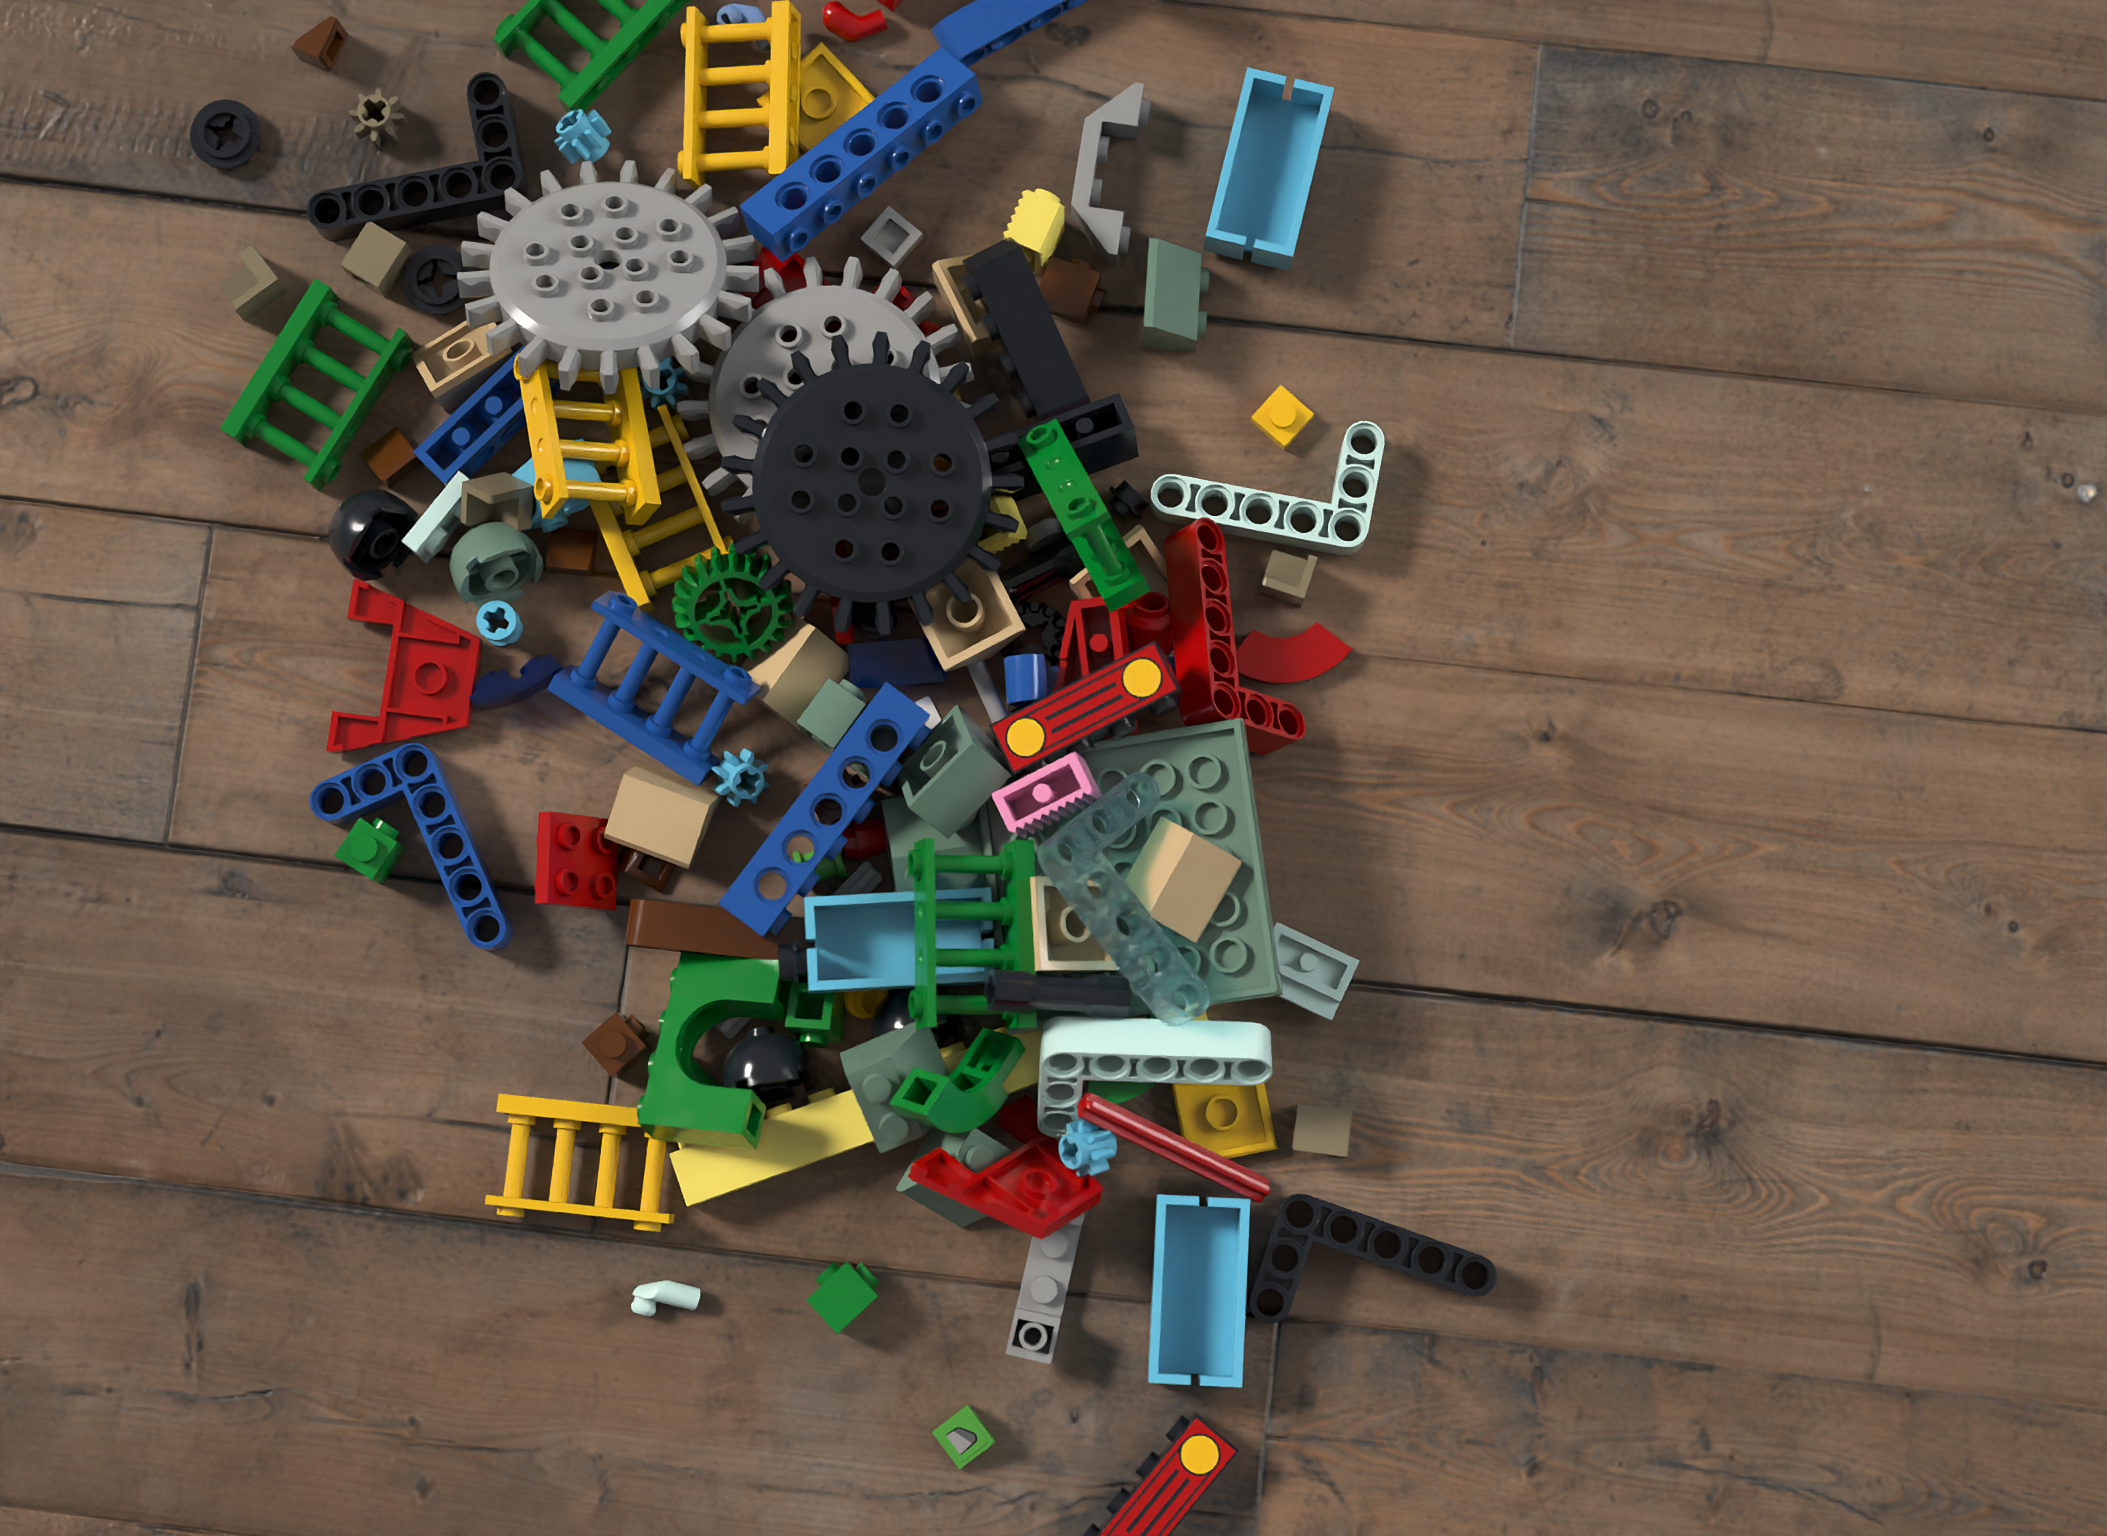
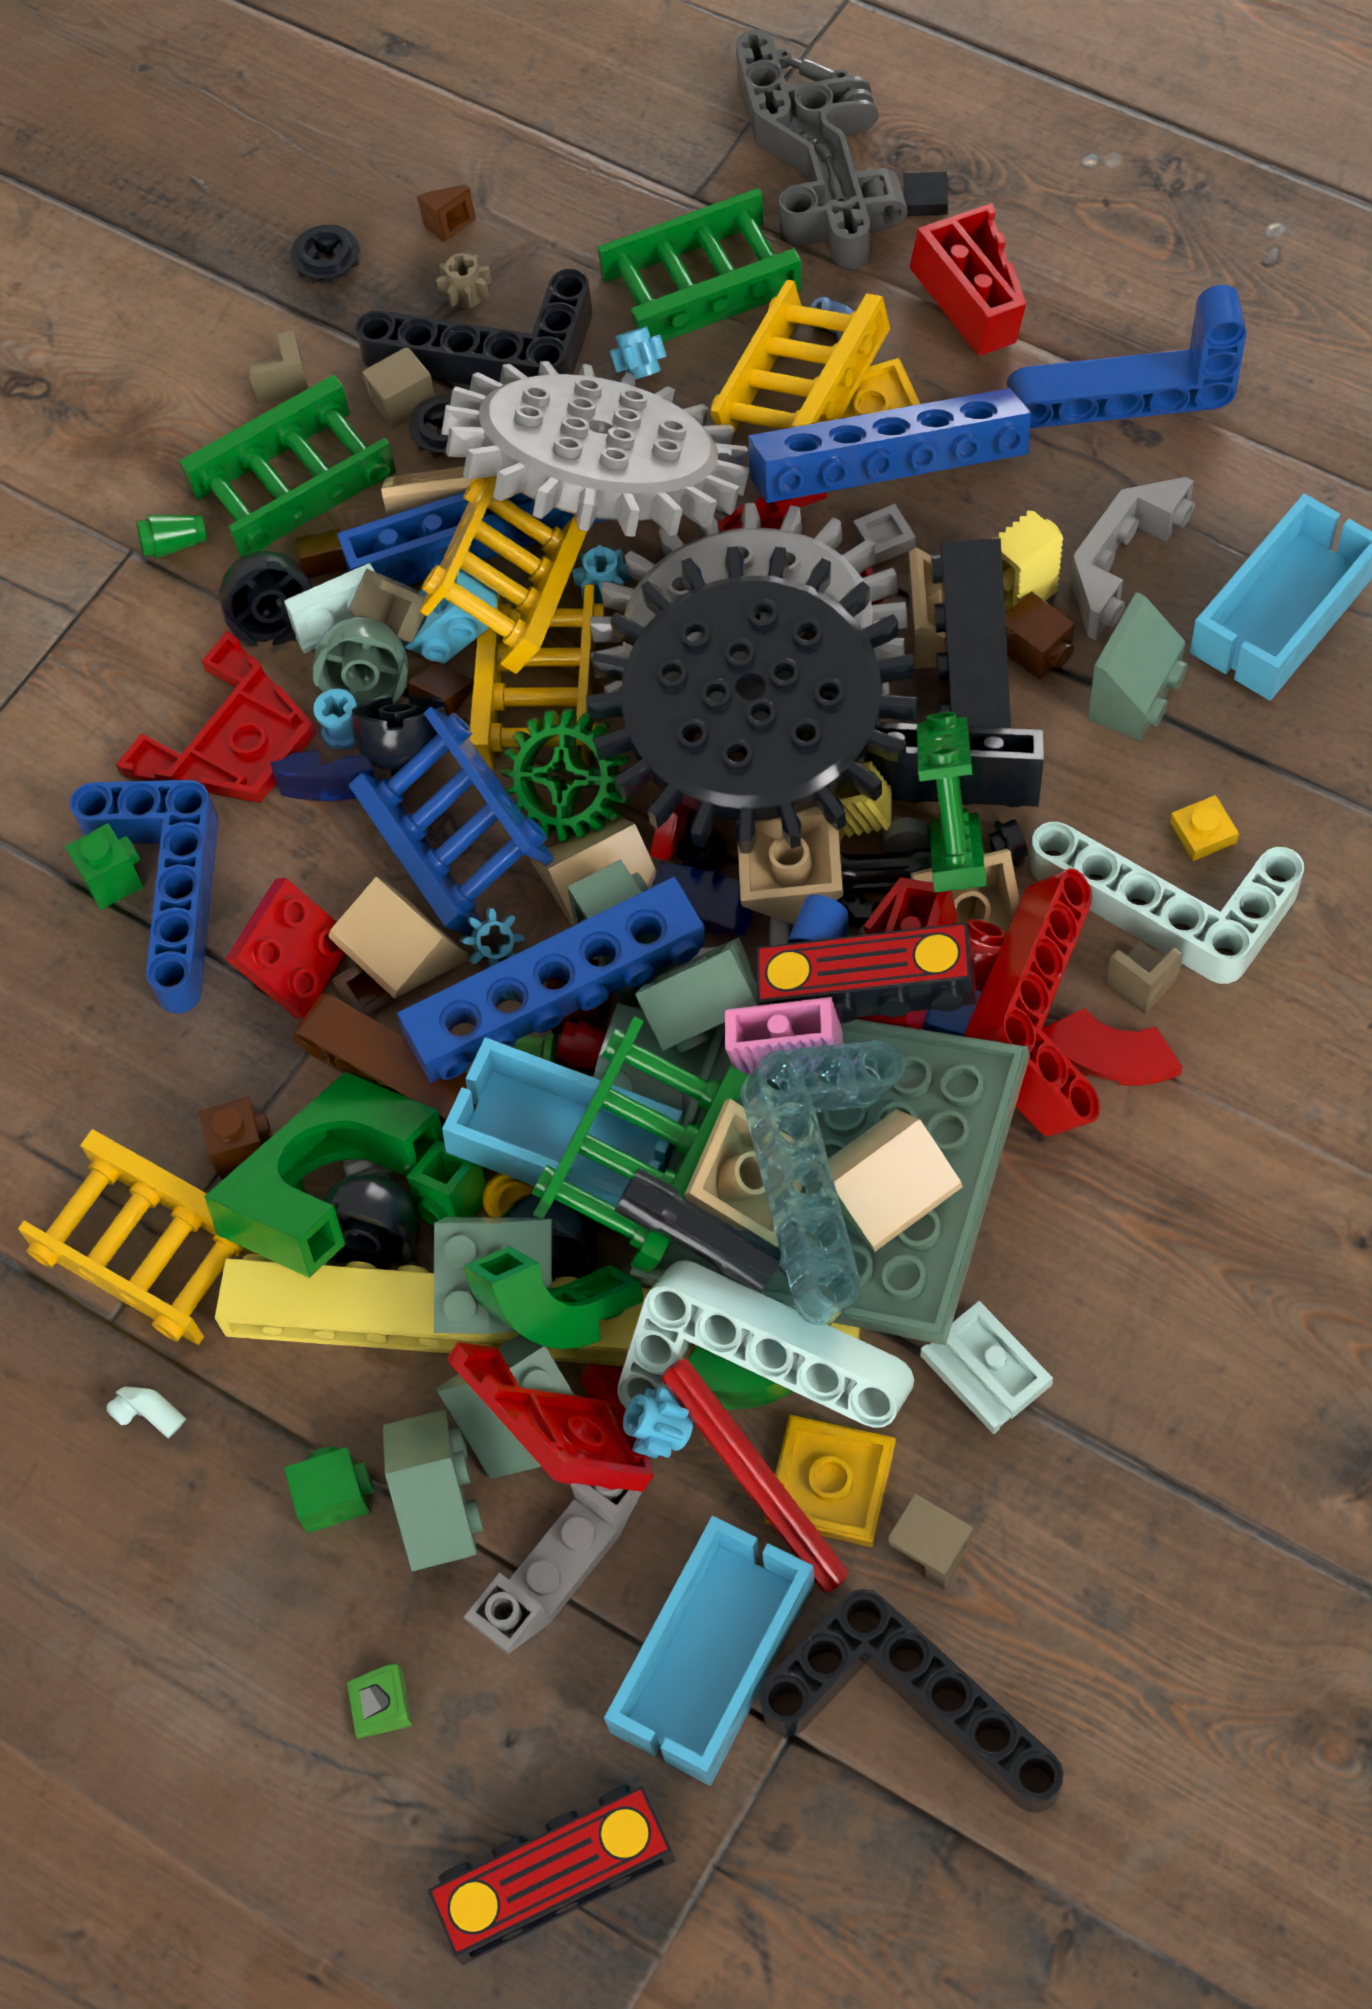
camera: 30 degrees right, 20 degrees down
(243, 499) = (168, 534): none -> green cone
(560, 616) = (393, 732): none -> black cylinder
(791, 962) = (438, 1105): black plate -> none
(849, 25) = (933, 355): red arm -> none
(926, 1261) = (426, 1482): none -> sand green brick

